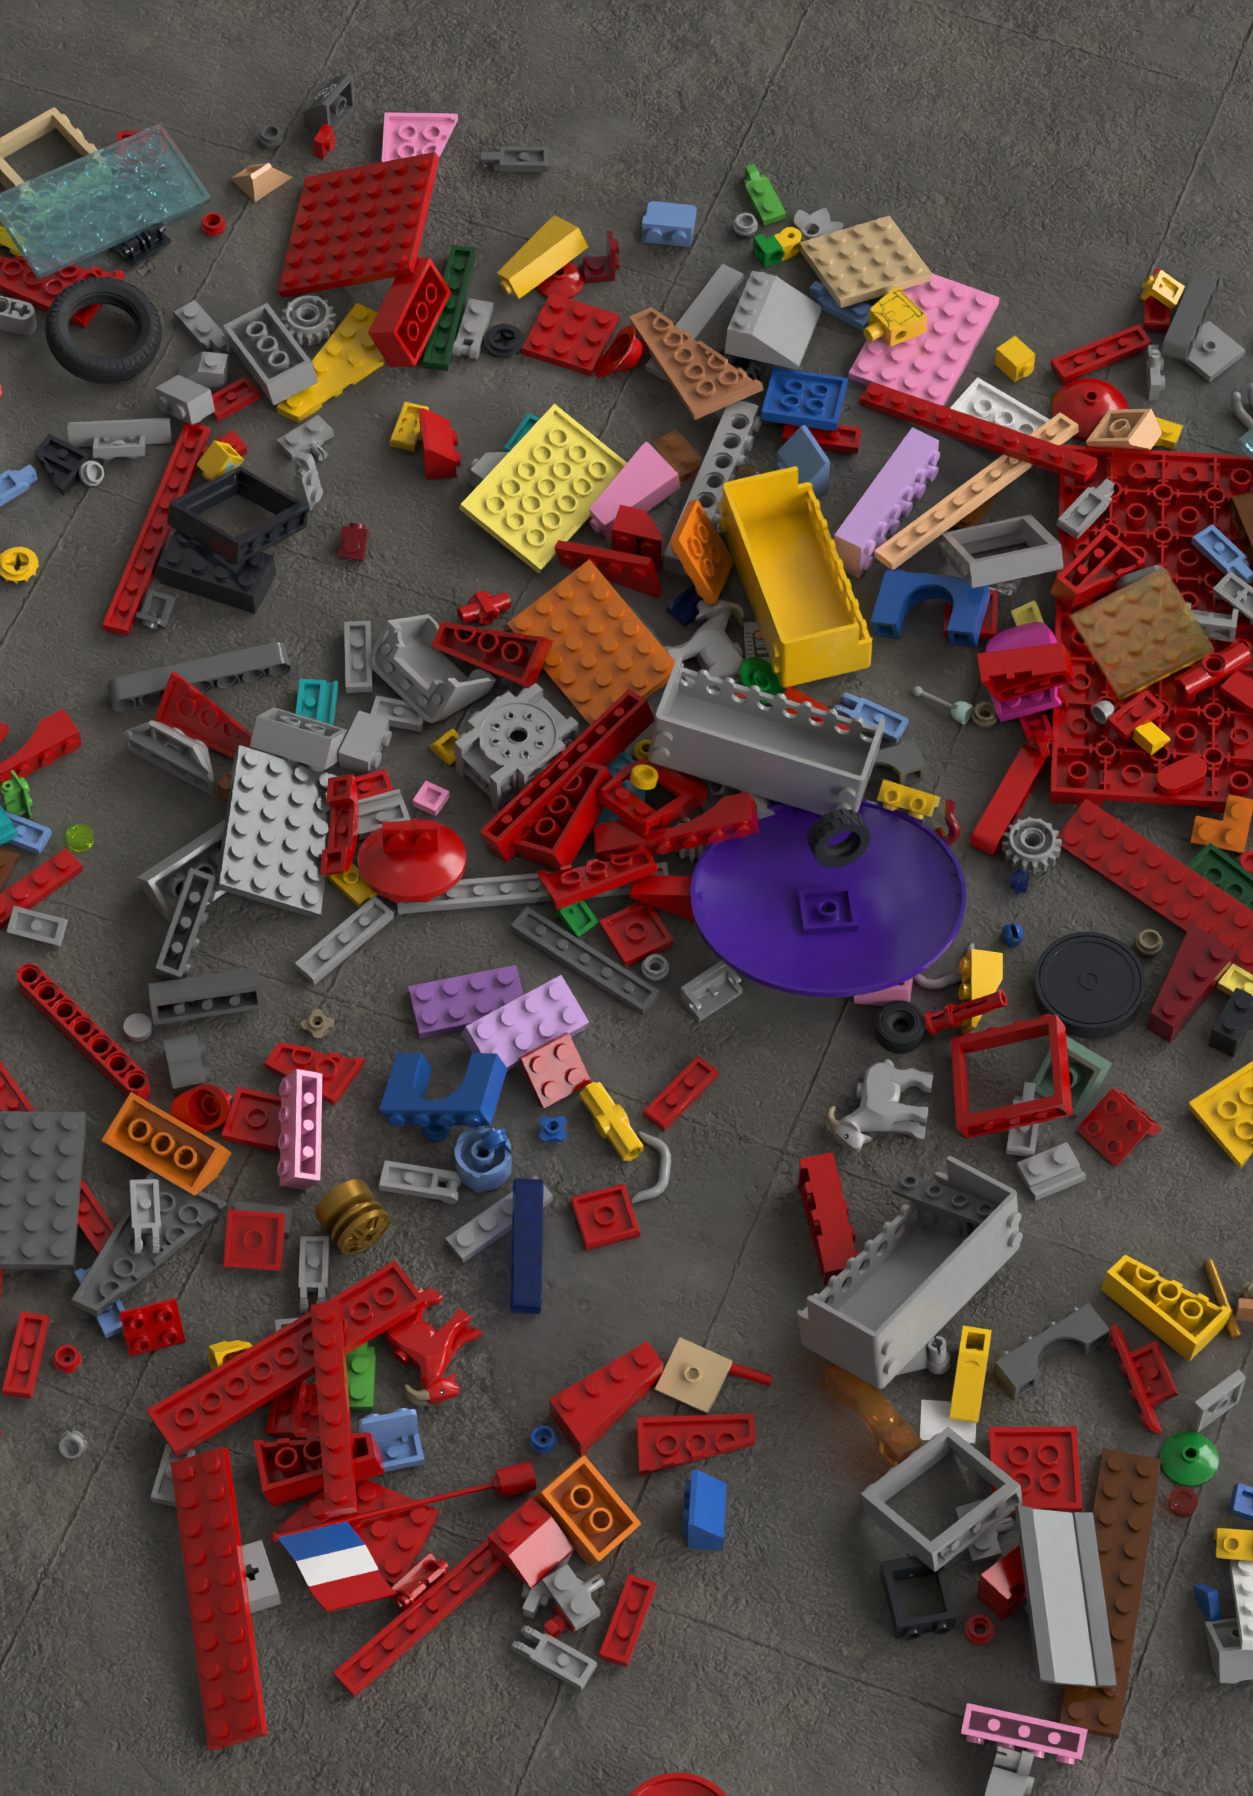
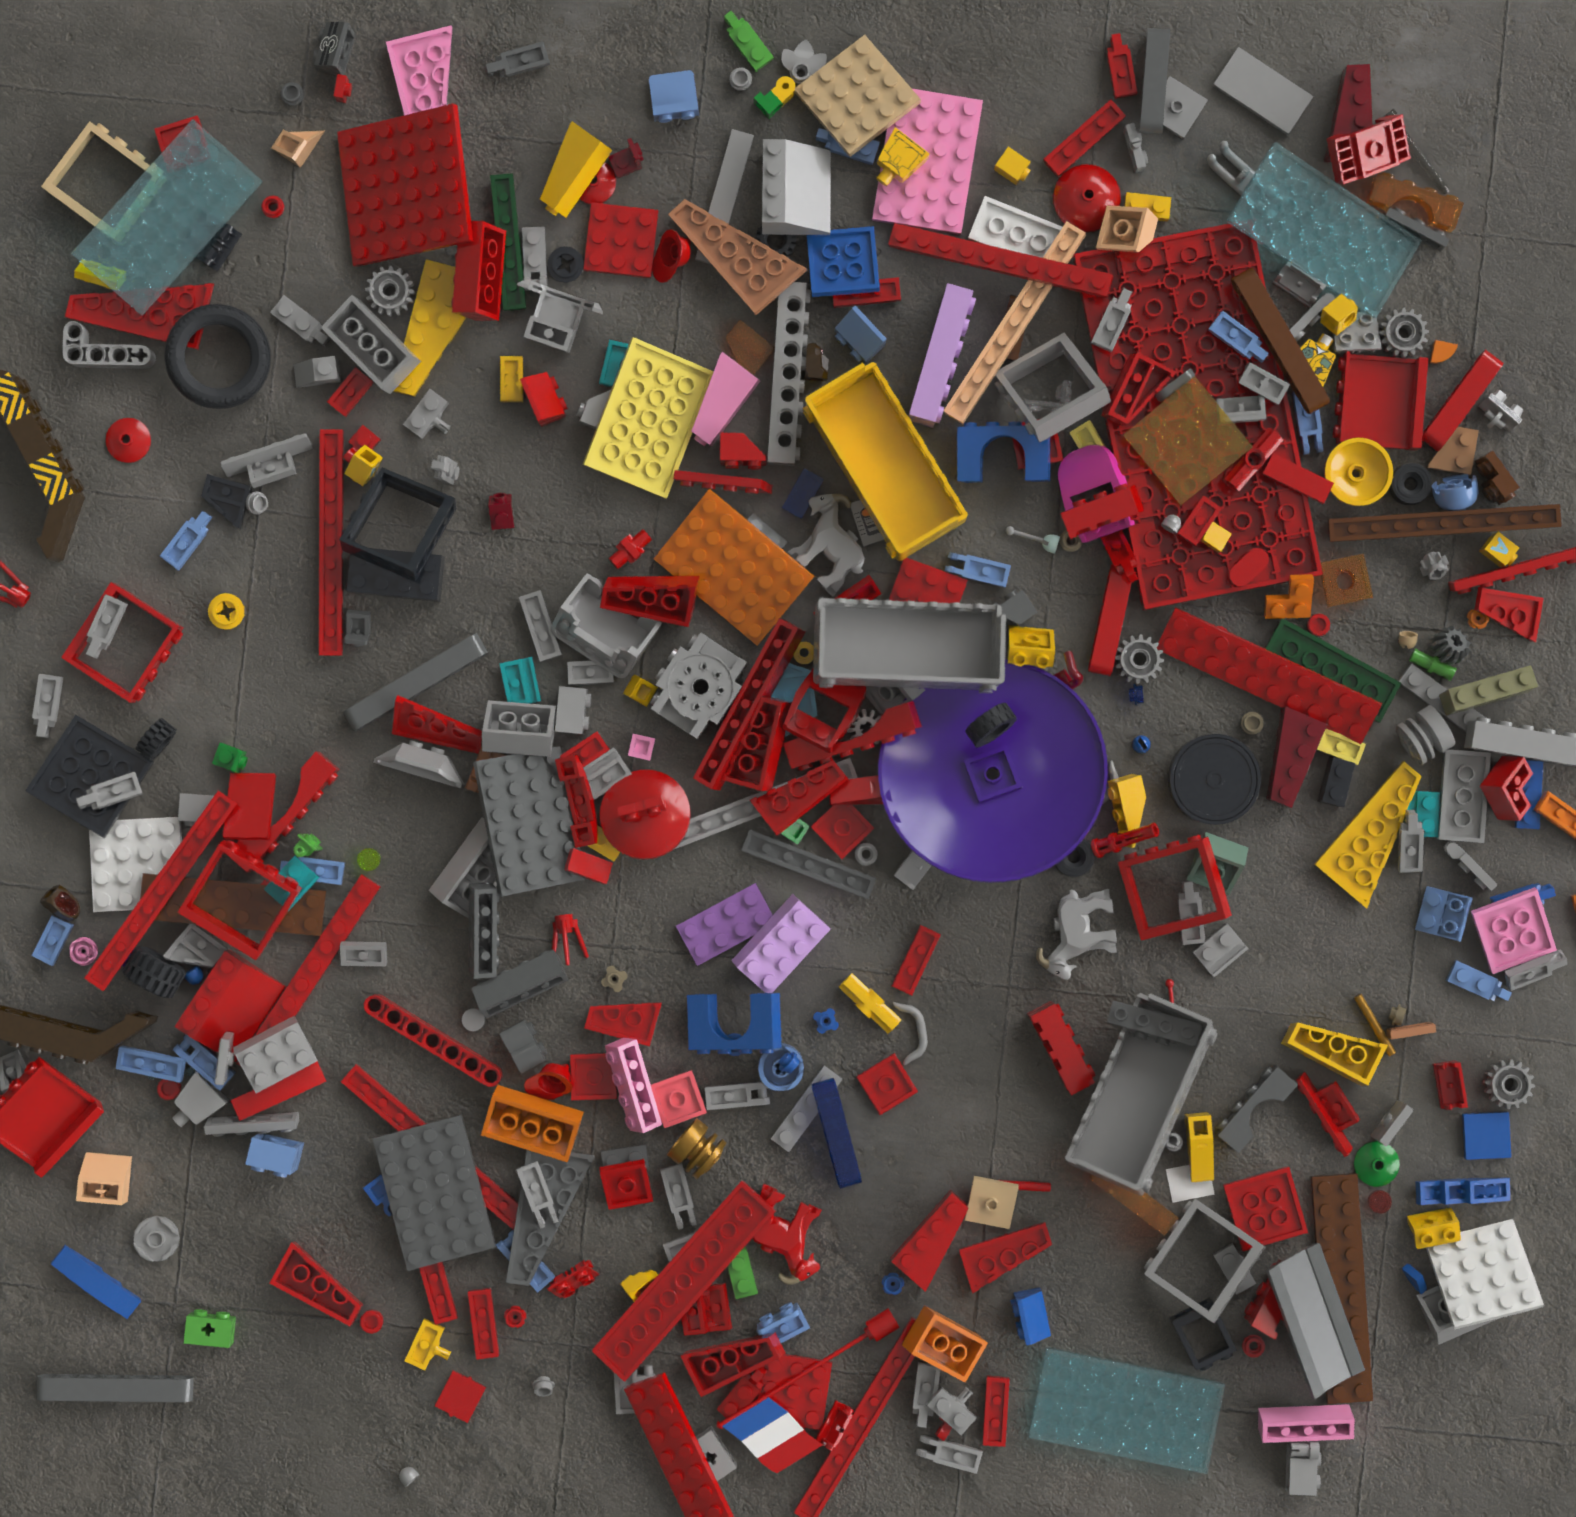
camera: 15 degrees left, 30 degrees up
(185, 399) = (312, 410): light grey brick -> none
(279, 955) = (564, 924): none -> red plant
(328, 897) = (588, 866): none -> red tile
(333, 1409) = (734, 1323): red plate -> none
(344, 940) = (612, 898): light grey plate -> none
(348, 1161) = (678, 1098): none -> coral plate
(477, 379) = (556, 316): none -> light grey piece
(530, 1543) = (910, 1381): red slope -> none
(554, 1070) = (814, 974): plate -> none
(644, 777) = (815, 699): yellow tile -> none
(701, 552) = (801, 460): orange plate -> none
(759, 673) = (885, 568): green dish -> none
(796, 1663) = (1126, 1410): none -> clear light blue plate
(1117, 1126) = (1265, 898): red bracket -> none
(1162, 288) = (1125, 61): yellow bracket -> none

